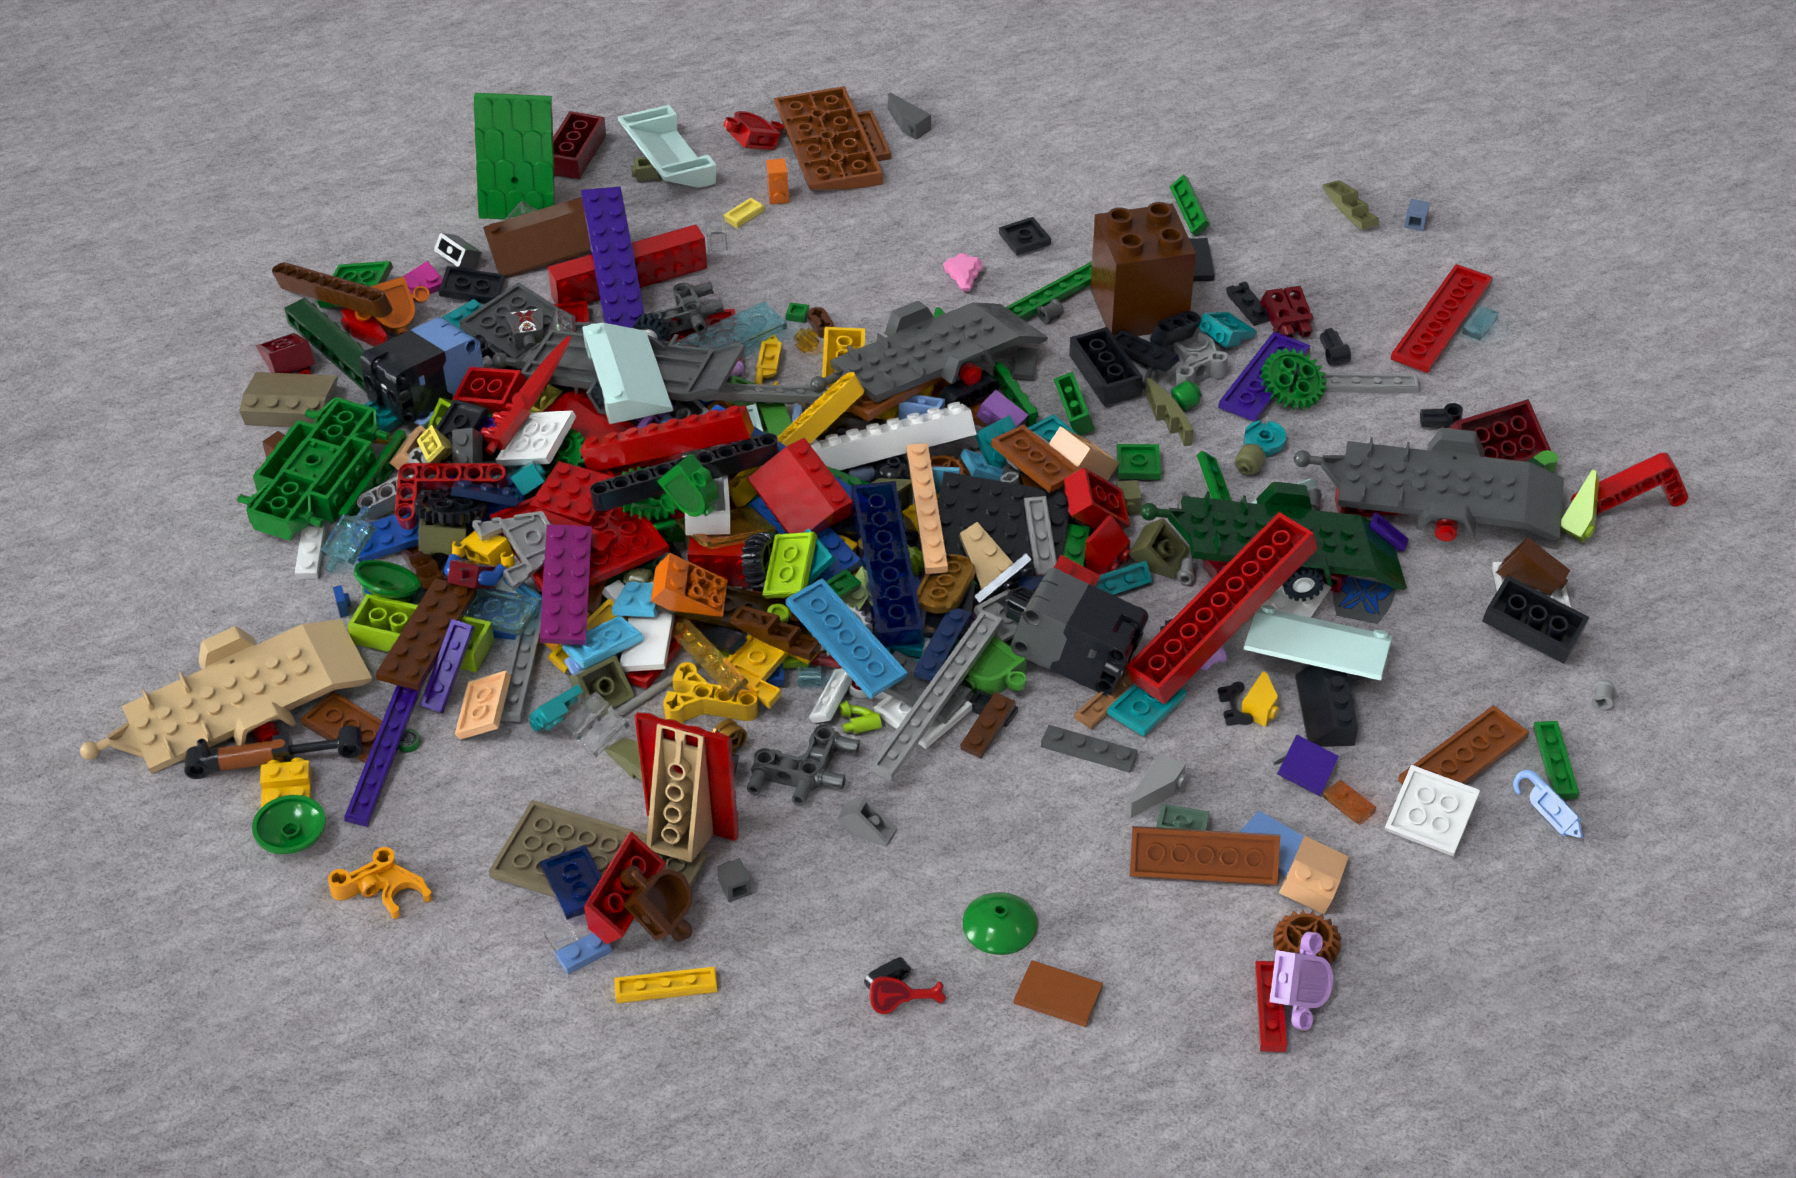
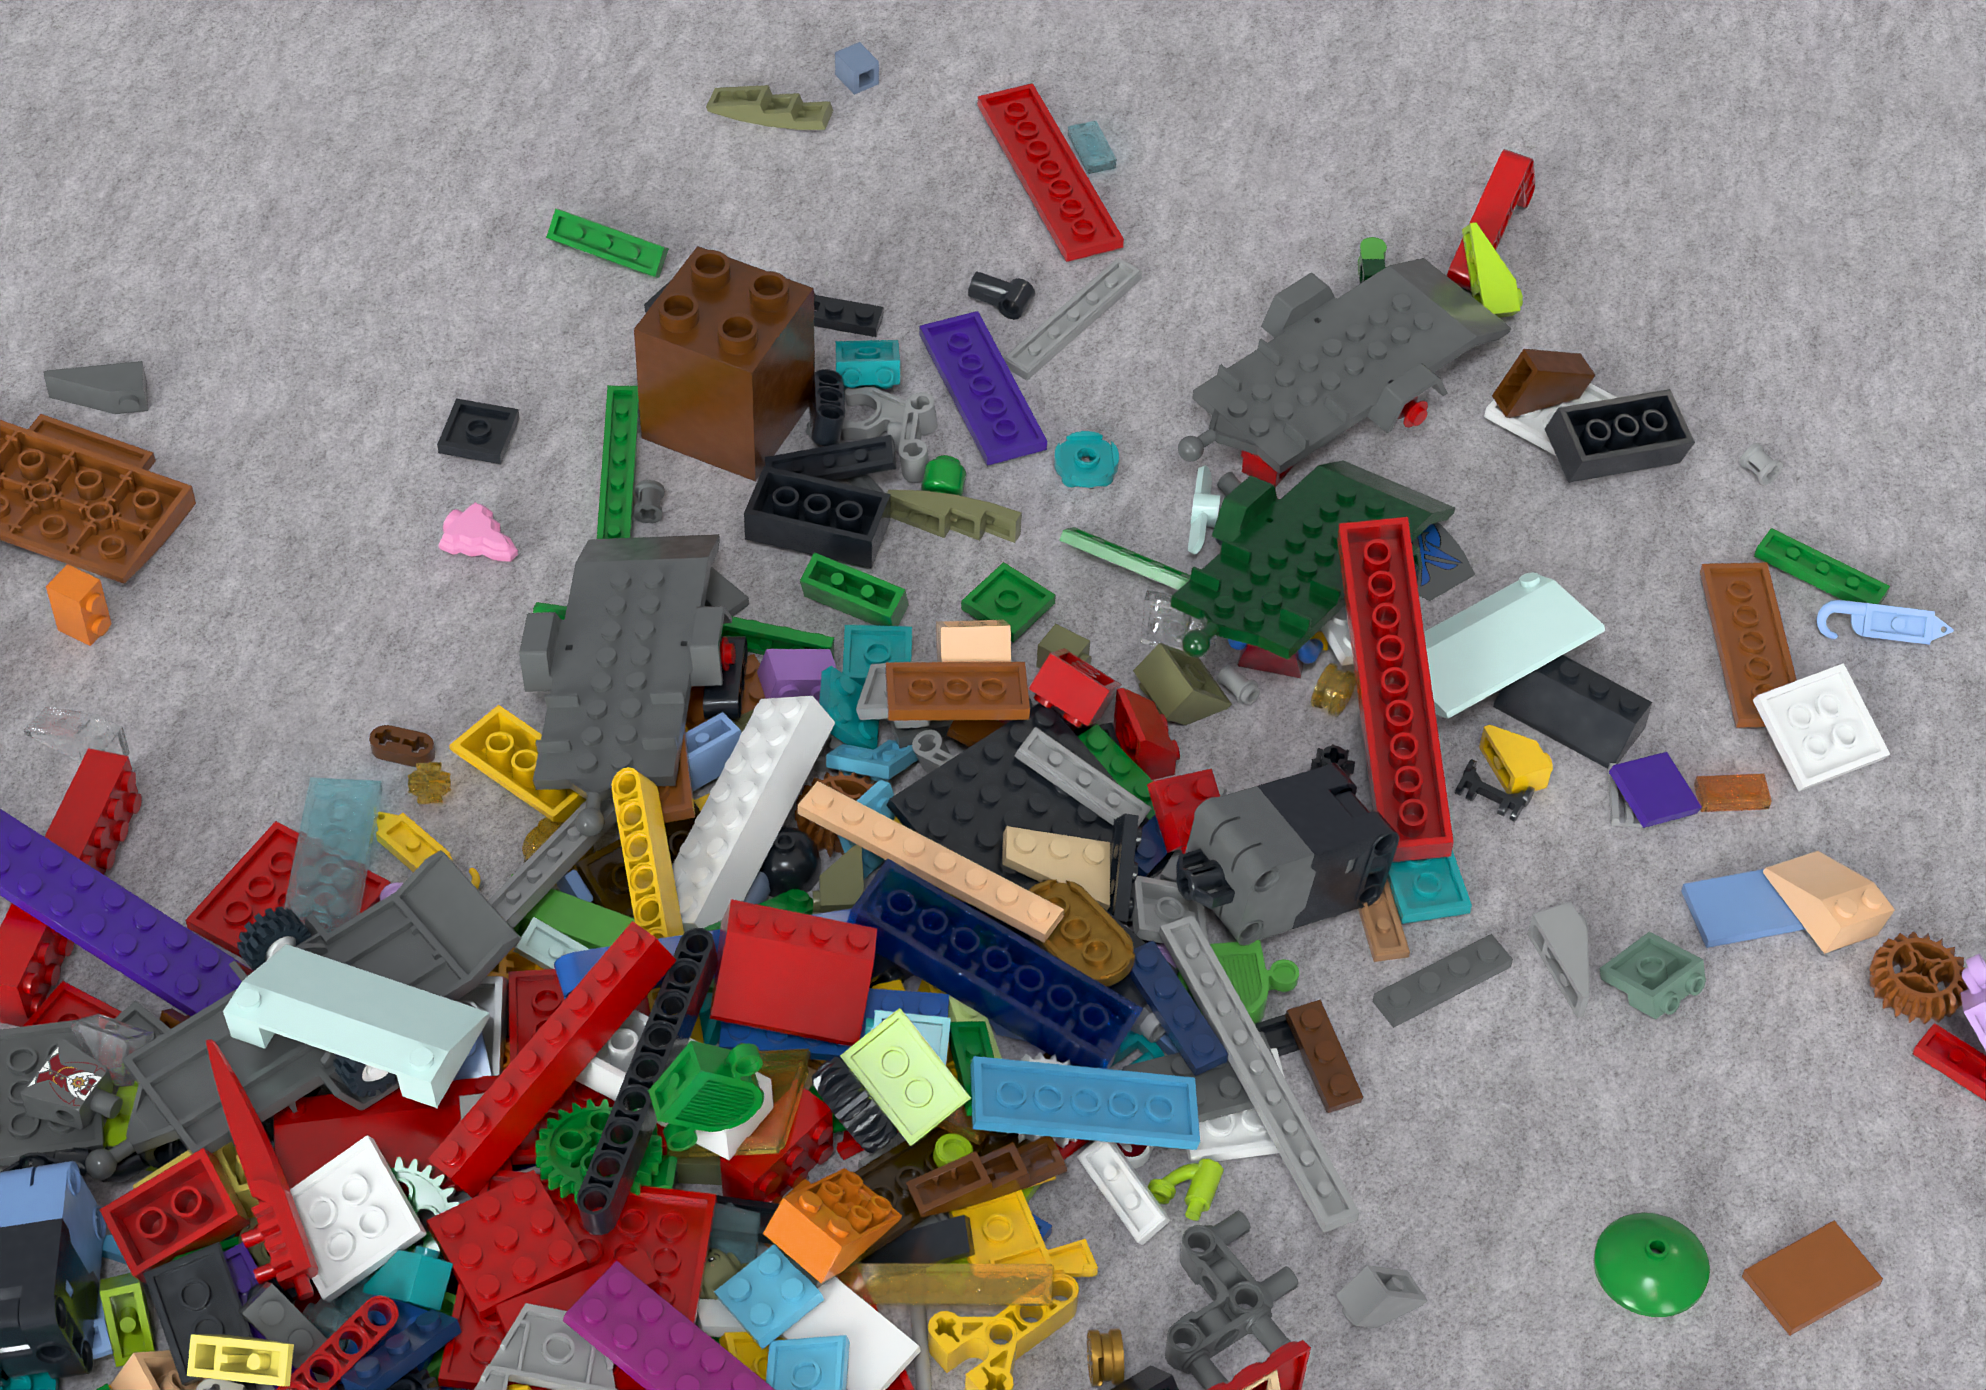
camera: 55 degrees left, 5 degrees up
(689, 309) = (243, 873): dark grey pin -> none
(744, 212) = (78, 682): light yellow tile -> none
(797, 312) = (351, 758): green tile -> none
(809, 675) = (1066, 1192): clear light blue bush -> none
(1125, 578) = (1199, 744): teal plate -> none
(1205, 855) = (1724, 983): dark orange plate -> none
(1250, 458) = (1115, 497): olive head -> none
(1279, 375) = (1028, 364): green gear -> none
(1288, 312) = (907, 289): dark red hips -> none
(1388, 532) = (1357, 461): dark purple tile -> none
(1441, 417) = (1215, 285): black piece -> none
(1507, 432) = (1291, 247): dark red slope -> none

